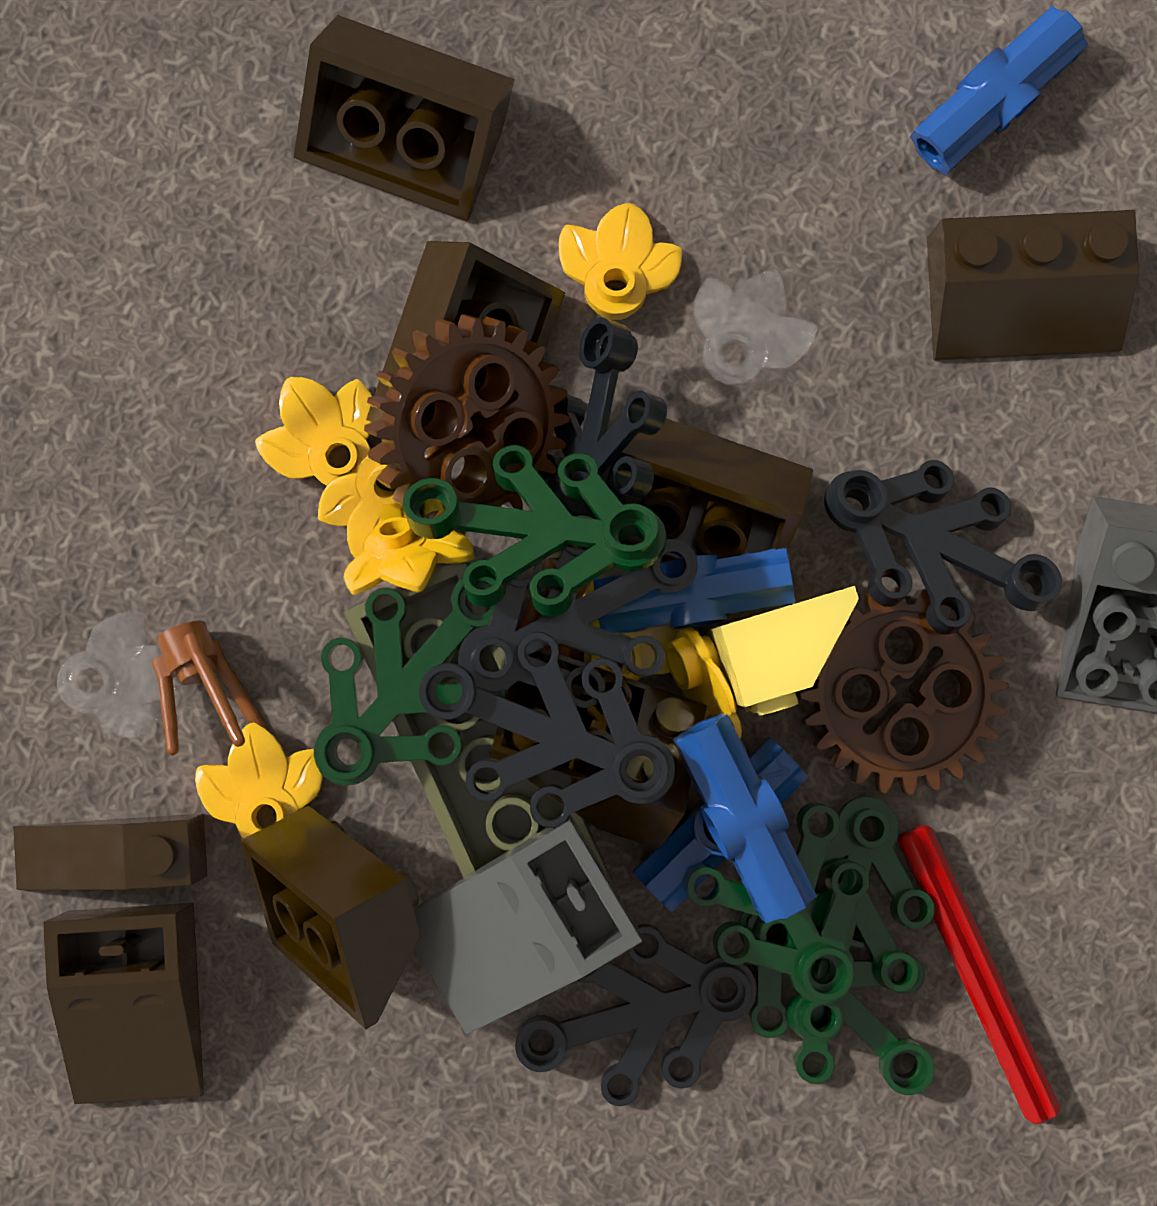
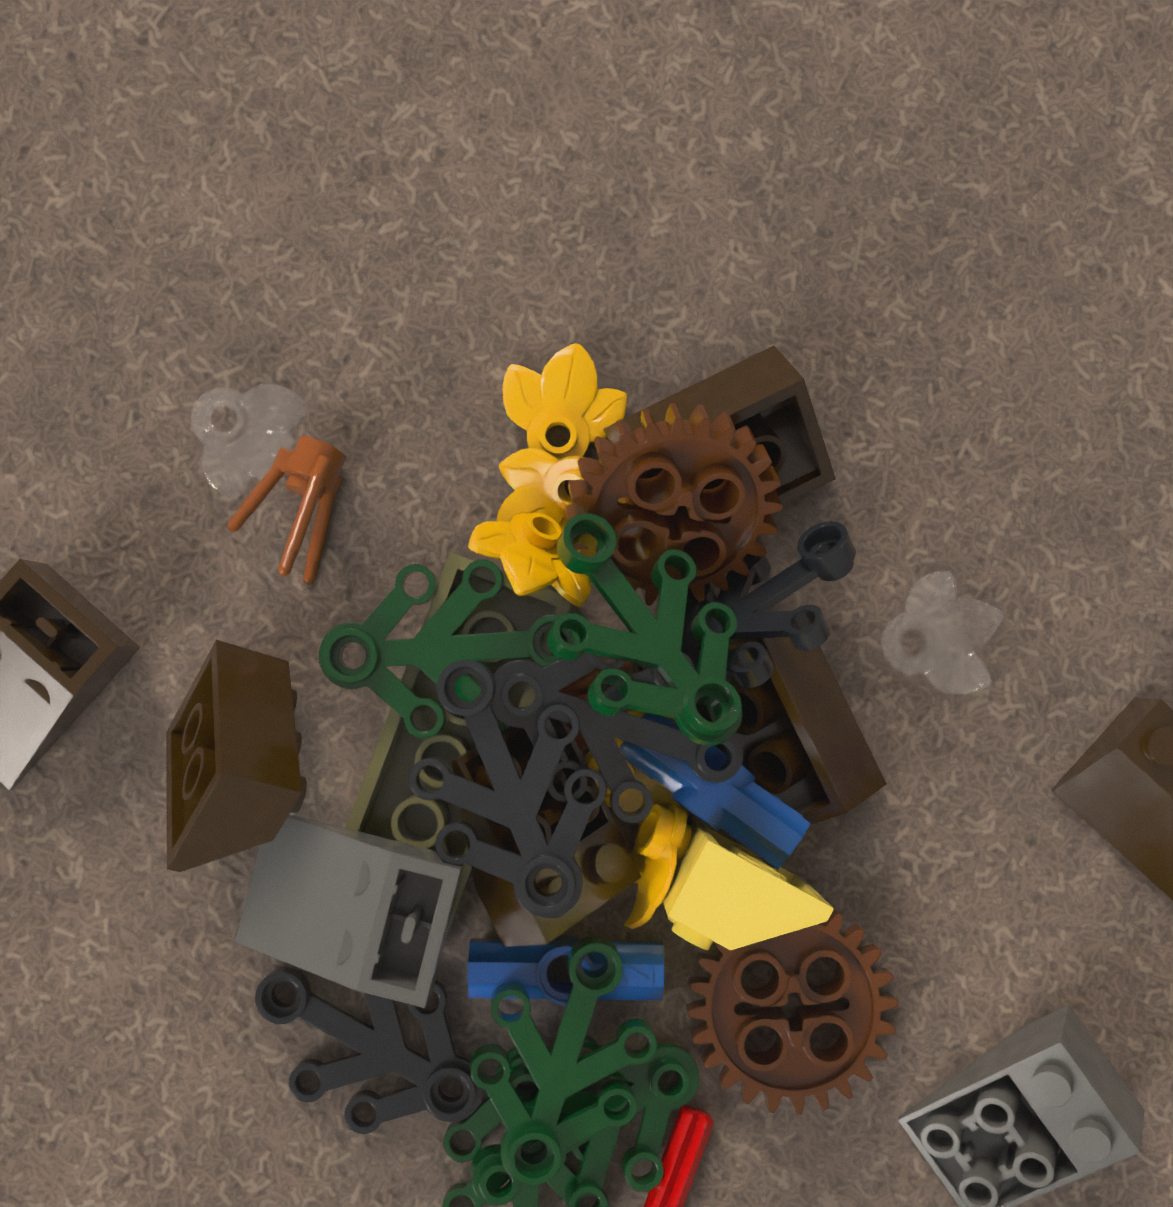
camera: 40 degrees right, 0 degrees up
(111, 853) = (117, 556): dark brown slope -> none
(258, 777) = (272, 605): yellow plate -> none
(400, 116) = (844, 237): dark brown slope -> none
(621, 252) = (903, 488): yellow plate -> none
(744, 818) = (587, 991): blue piece -> none
(931, 540) = (919, 922): black plant -> none

